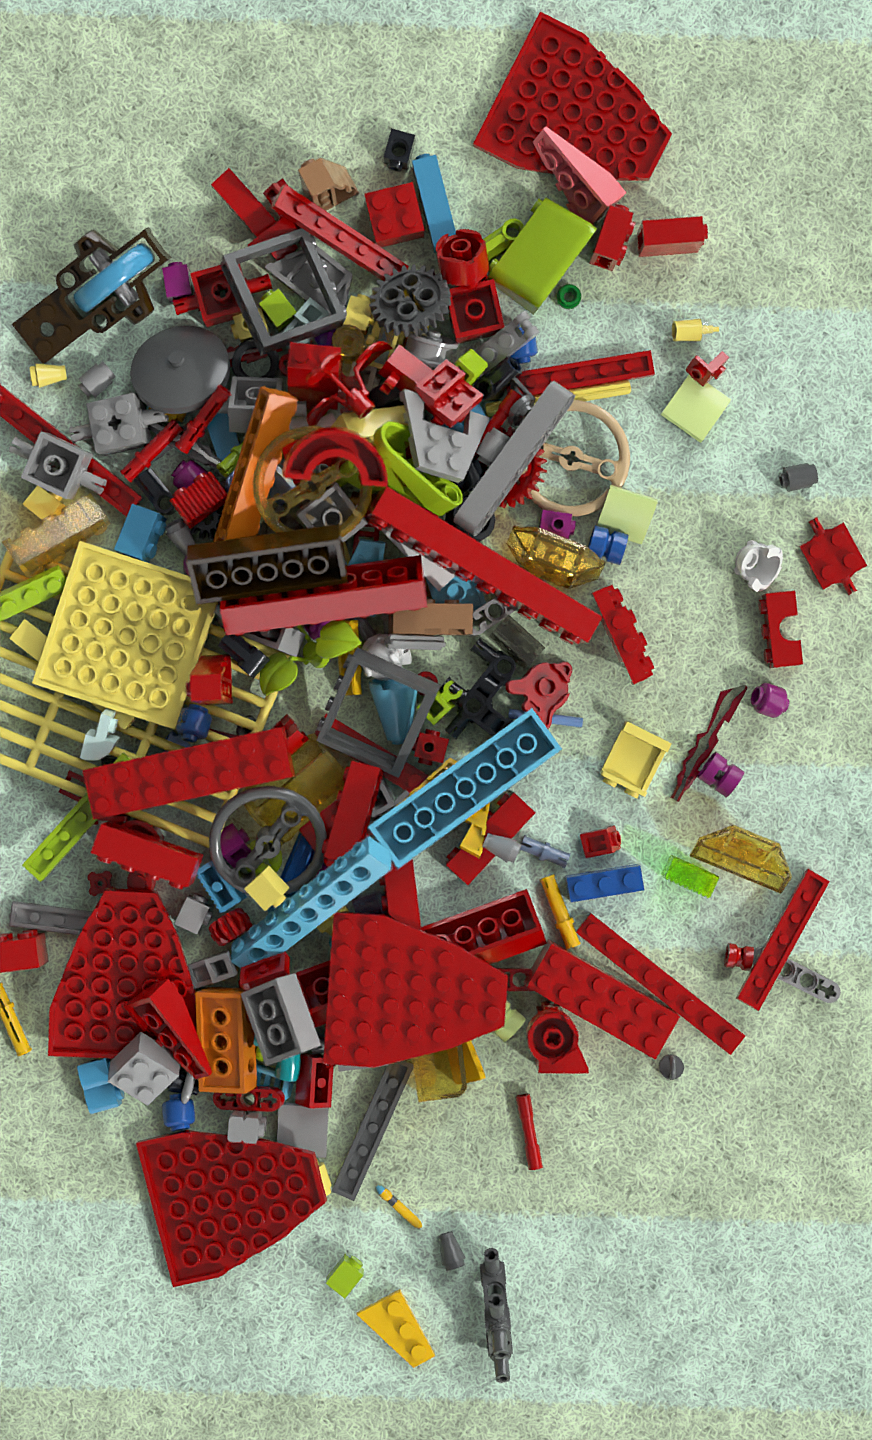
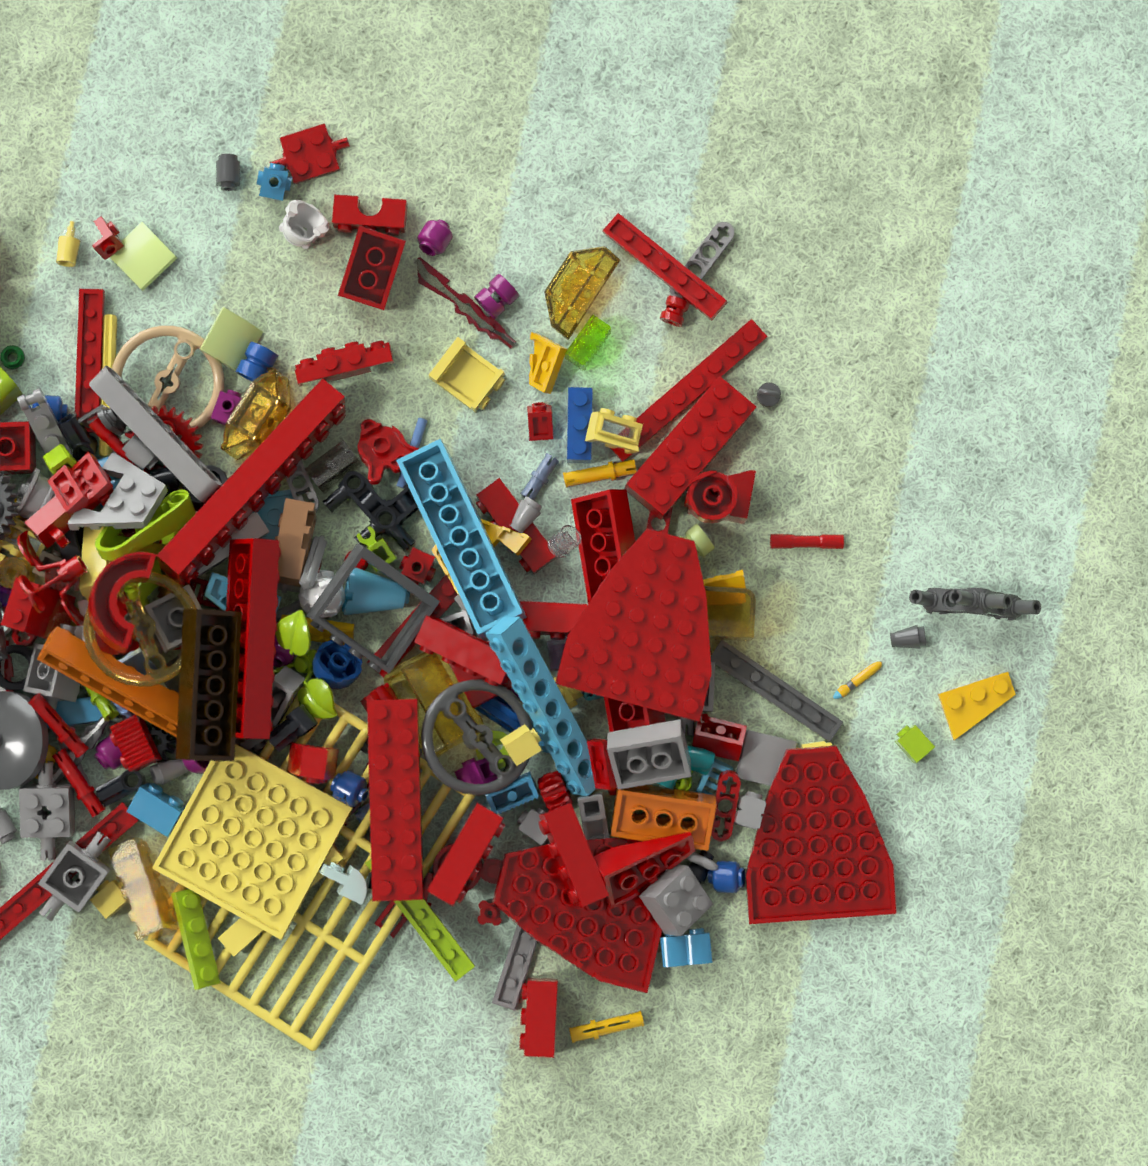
camera: 80 degrees left, 5 degrees down
(166, 961) = (573, 855): none -> red brick
(315, 684) = (336, 665): none -> blue cylinder
(482, 890) = (564, 541): none -> clear wheel
(603, 921) = (614, 430): none -> light yellow window
(661, 836) = (545, 363): none -> yellow wing
(725, 643) = (371, 268): none -> red brick
(787, 526) = (274, 191): none -> dark azure brick

